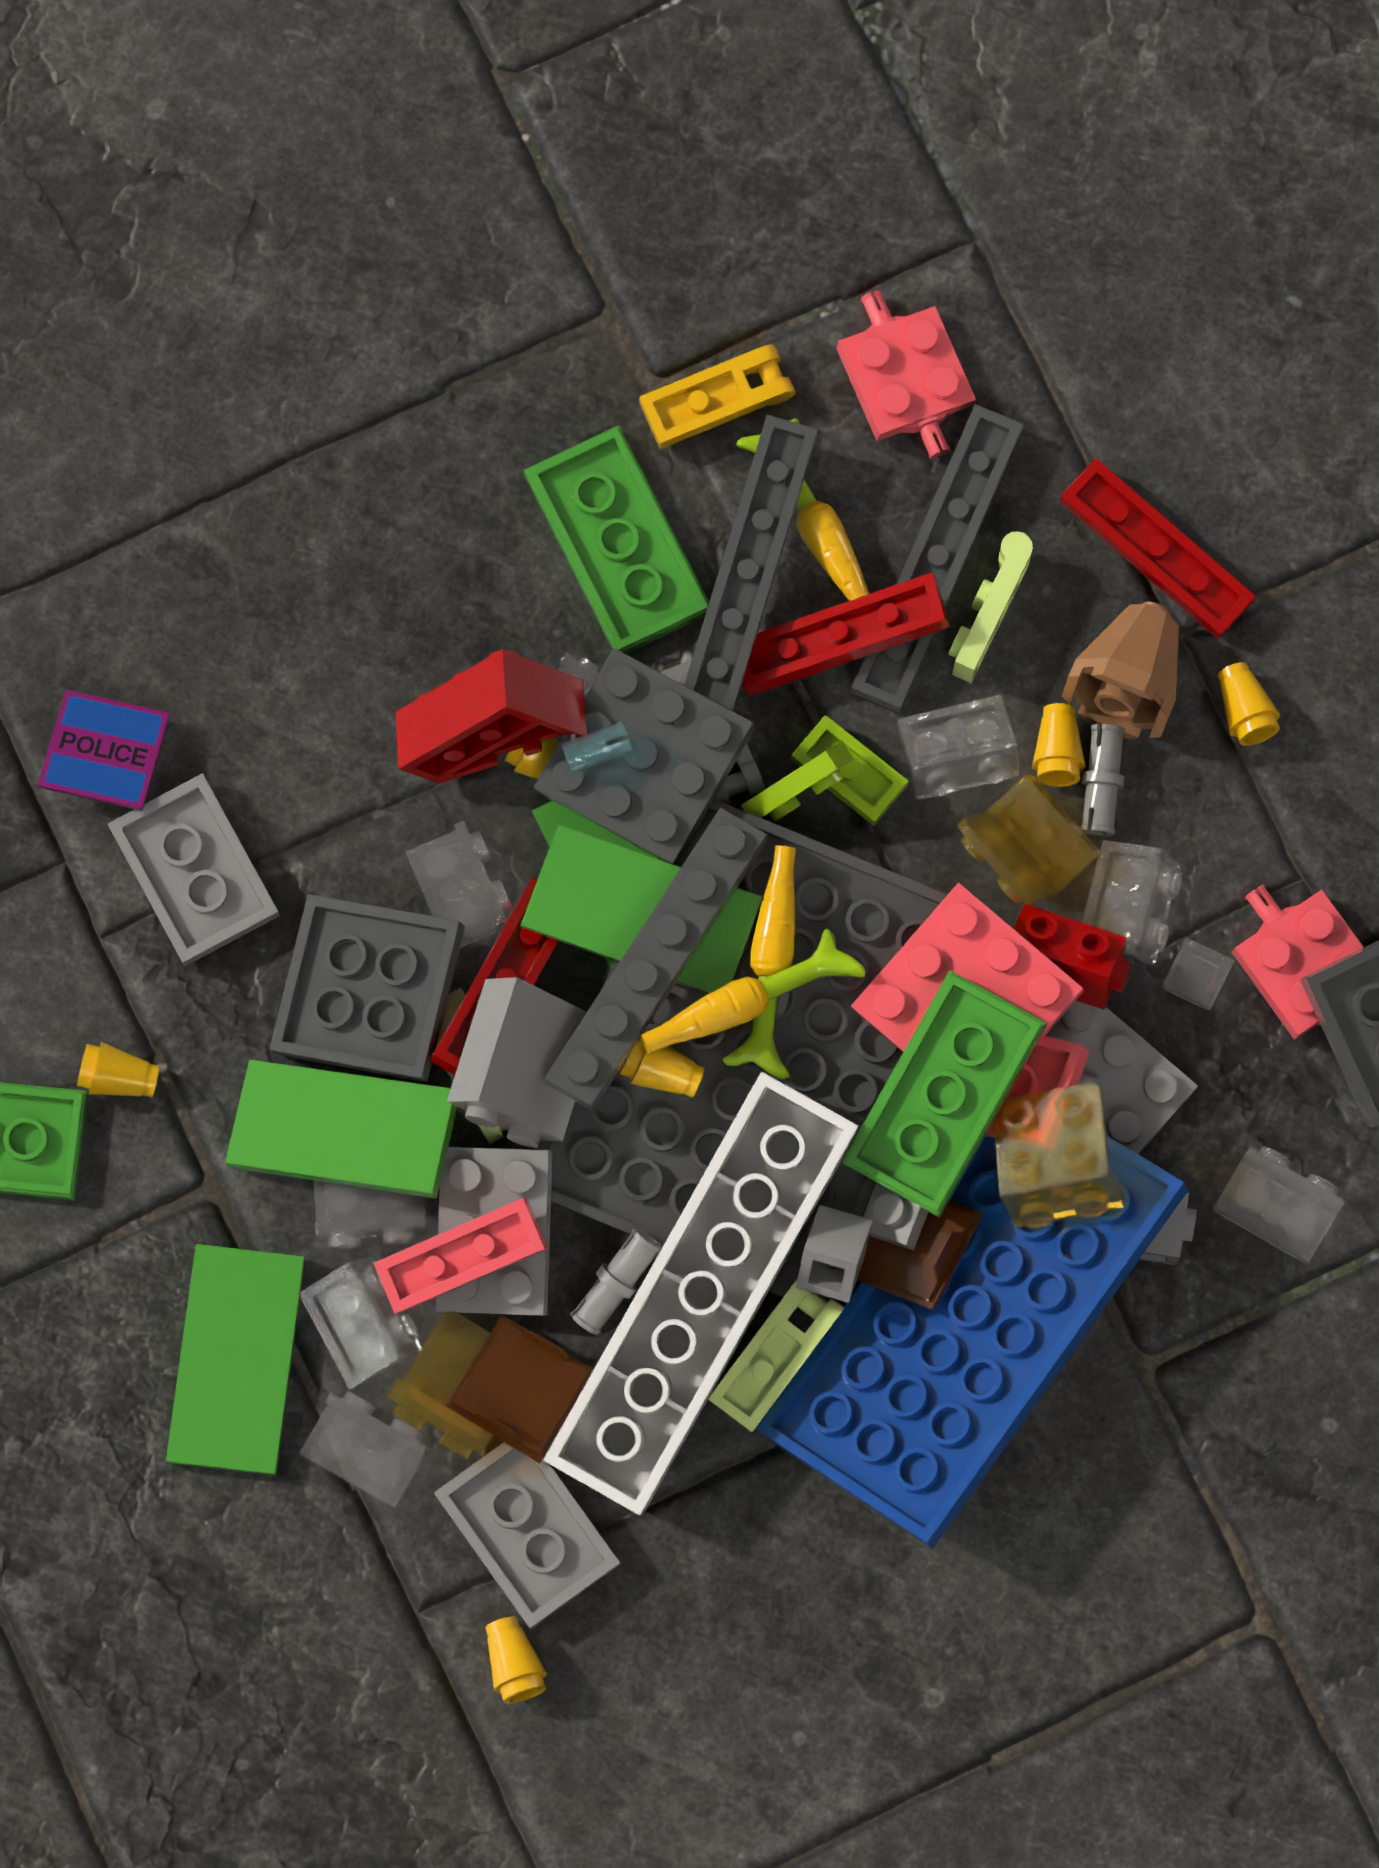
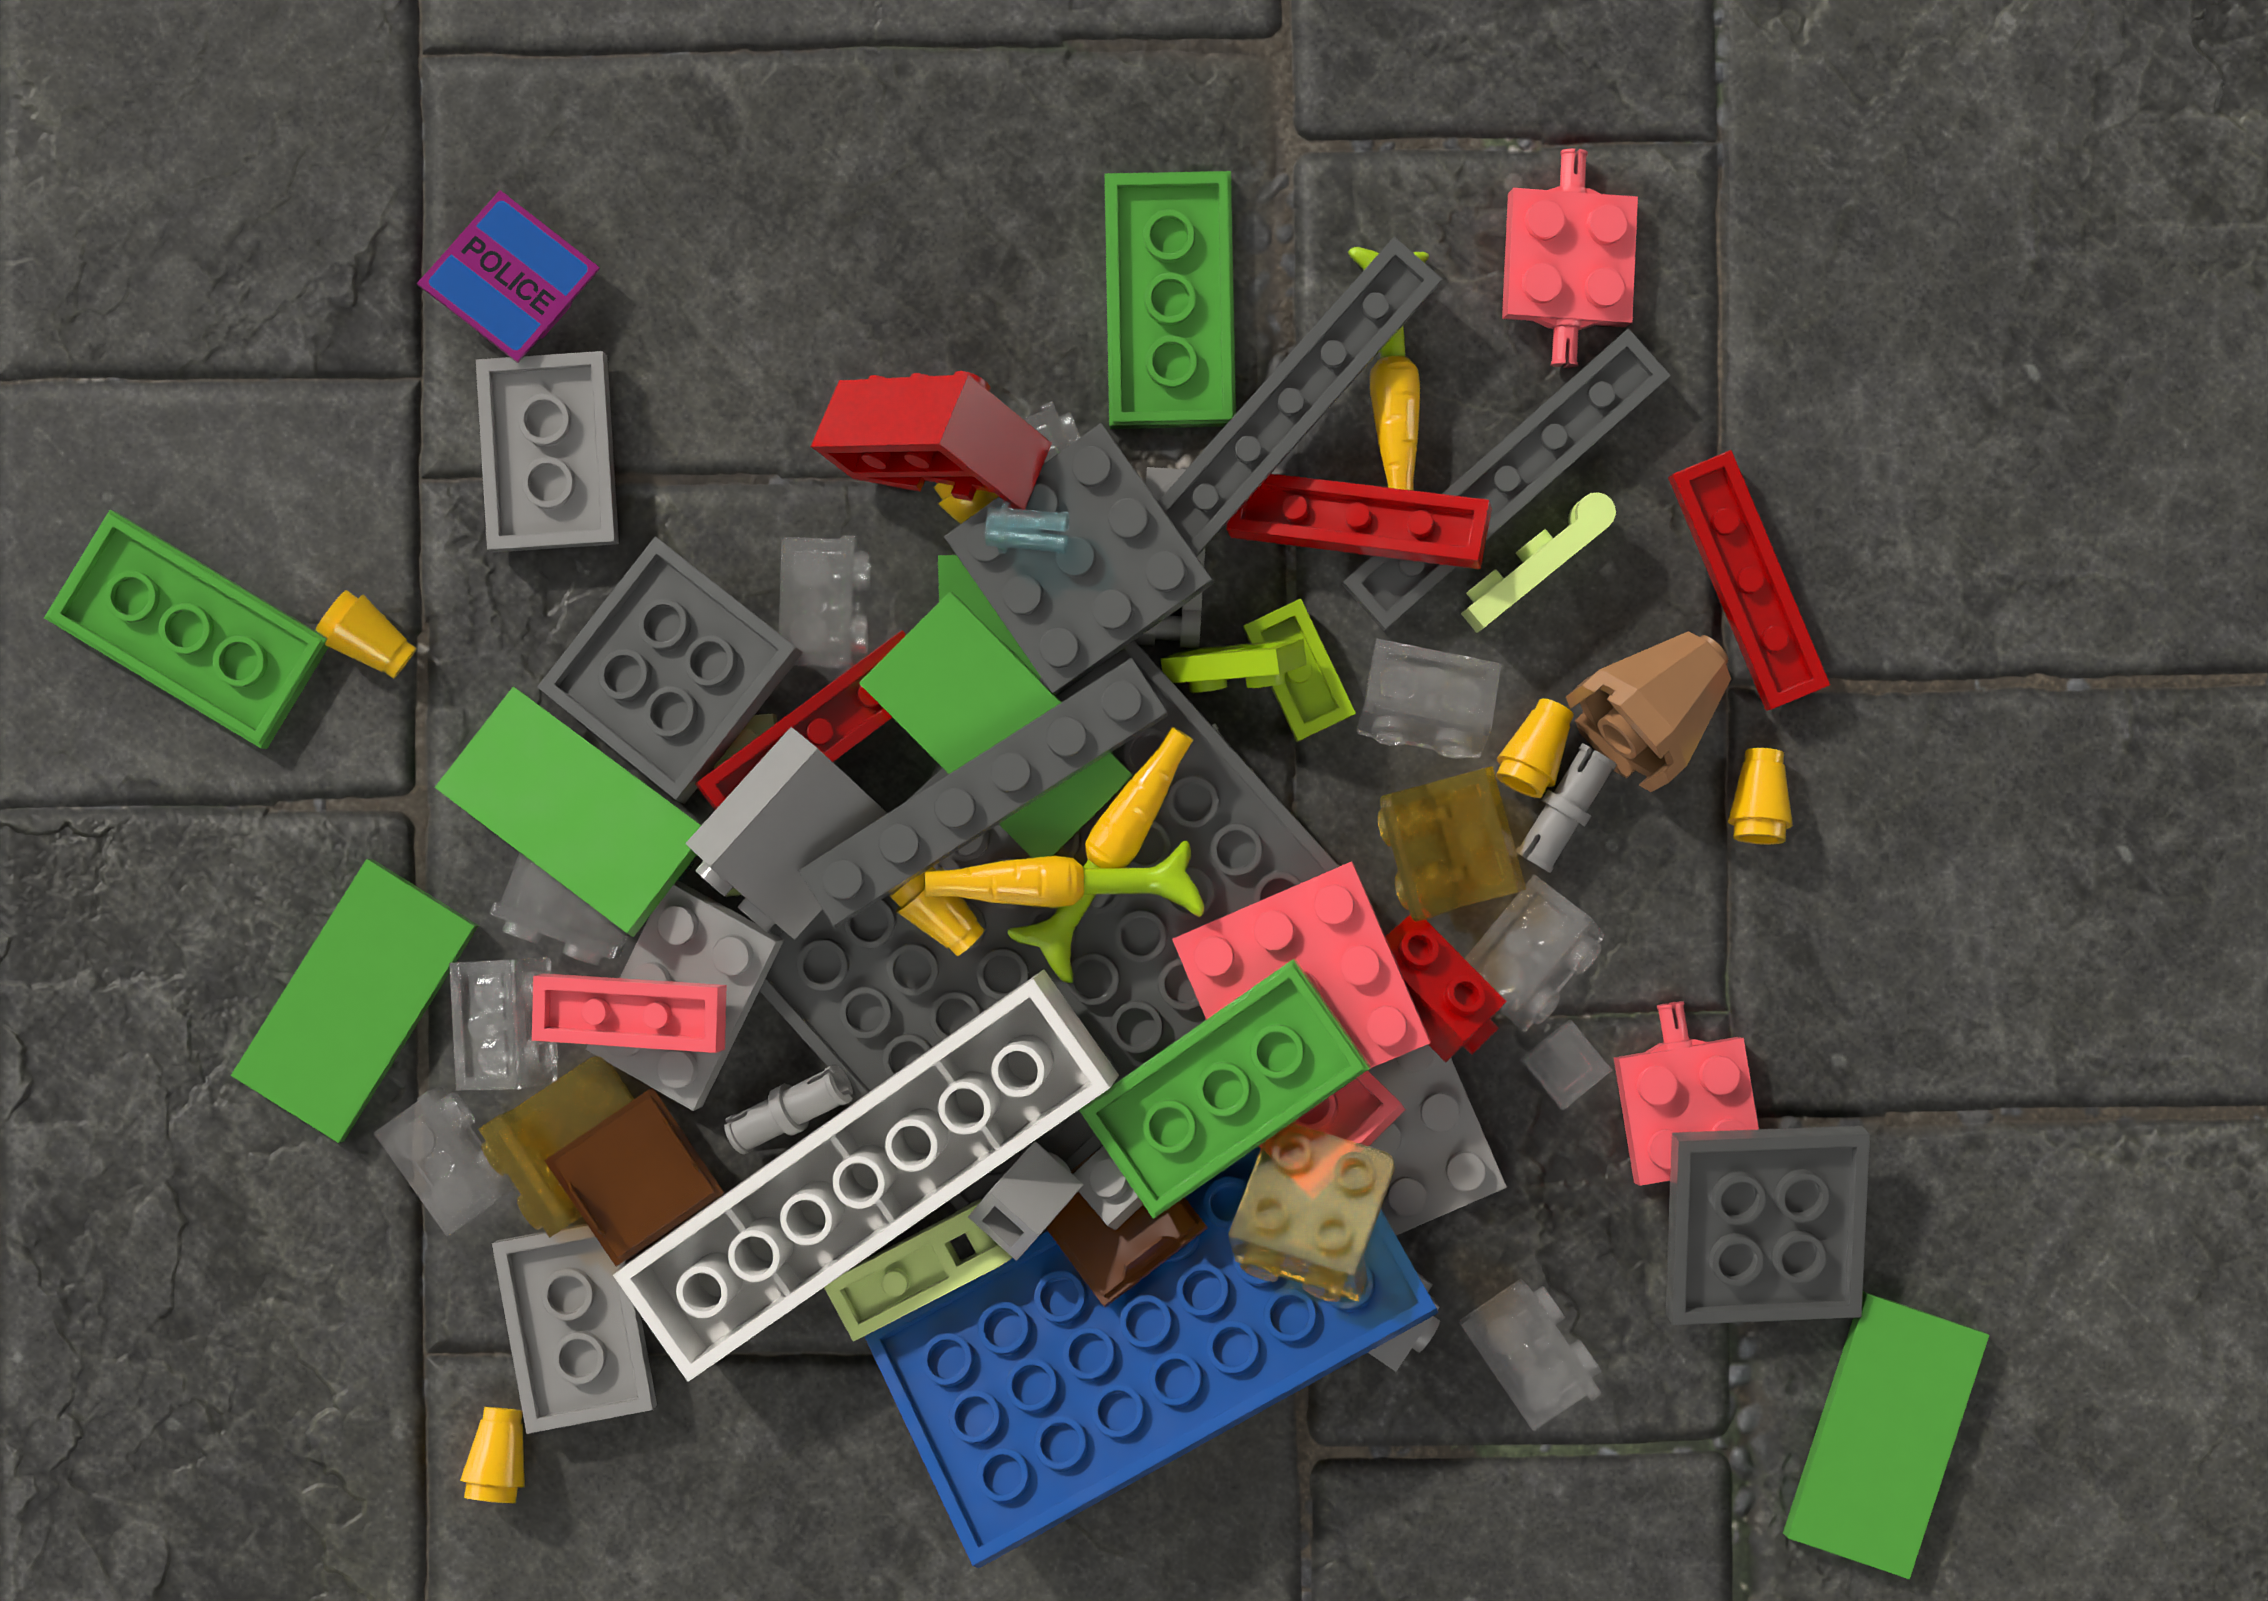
camera: 30 degrees right, 10 degrees up
(715, 396) = (1350, 187): yellow plate -> none

